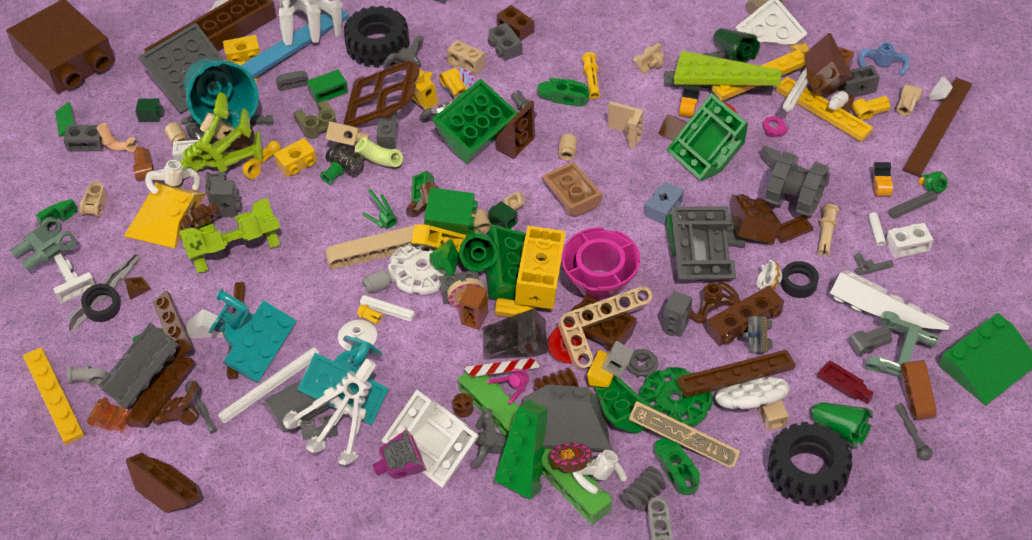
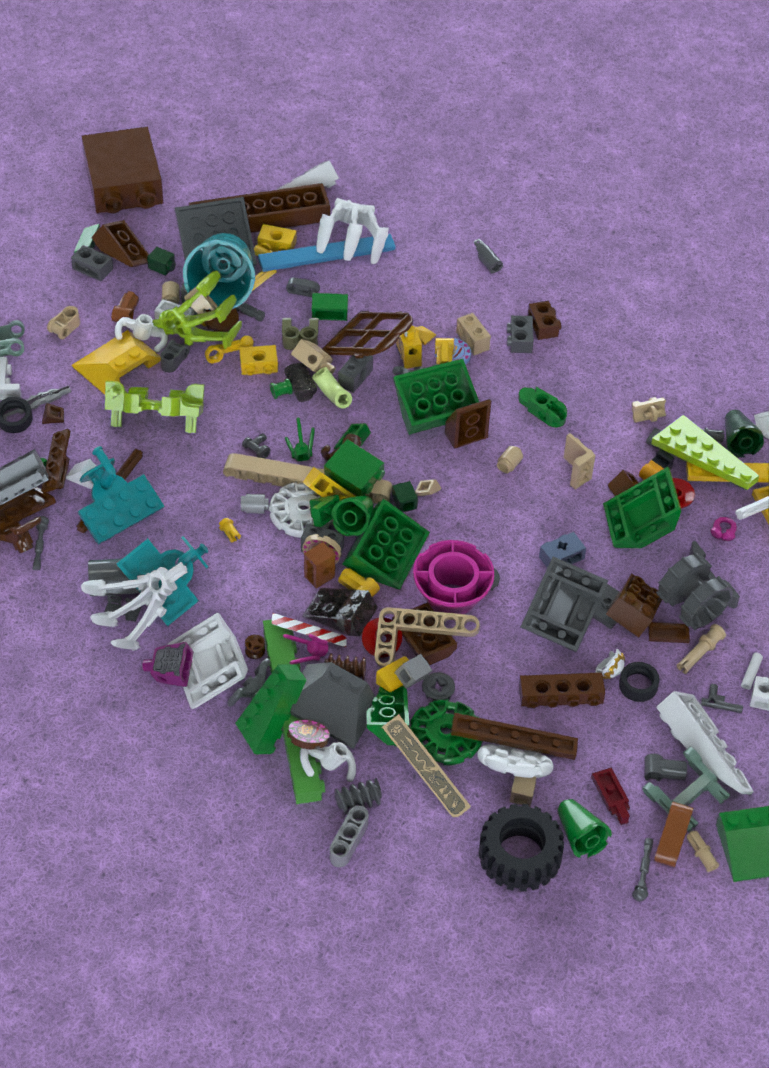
camera: 25 degrees right, 0 degrees up
(61, 210) = (33, 319): green slope -> none
(100, 108) = (120, 243): none -> reddish brown slope
(111, 142) = (111, 275): light nougat piece -> none
(200, 216) = (139, 377): reddish brown gear -> none
(226, 197) = (171, 370): dark grey brick -> none
(266, 386) = (101, 551): white axle -> none
(351, 234) = (254, 445): none -> dark grey piece
(367, 332) = (216, 546): white dish -> none
(370, 22) = (404, 293): black tyre -> none
(388, 308) = (250, 533): white axle -> none
(406, 54) = (419, 309): dark grey piece -> none
(520, 100) = (498, 402): dark grey pin -> none
(540, 267) = (384, 566): yellow plate -> none
(573, 189) = (485, 500): medium nougat slope -> none
(590, 69) = (588, 391): yellow pin -> none
(670, 452) = (403, 776): green piece -> none
(677, 314) = (496, 657): dark grey brick -> none
(713, 299) = (542, 661): reddish brown piece -> none
(758, 334) = (557, 710): dark grey hips -> none
(948, 393) = (702, 851): none -> tan axle

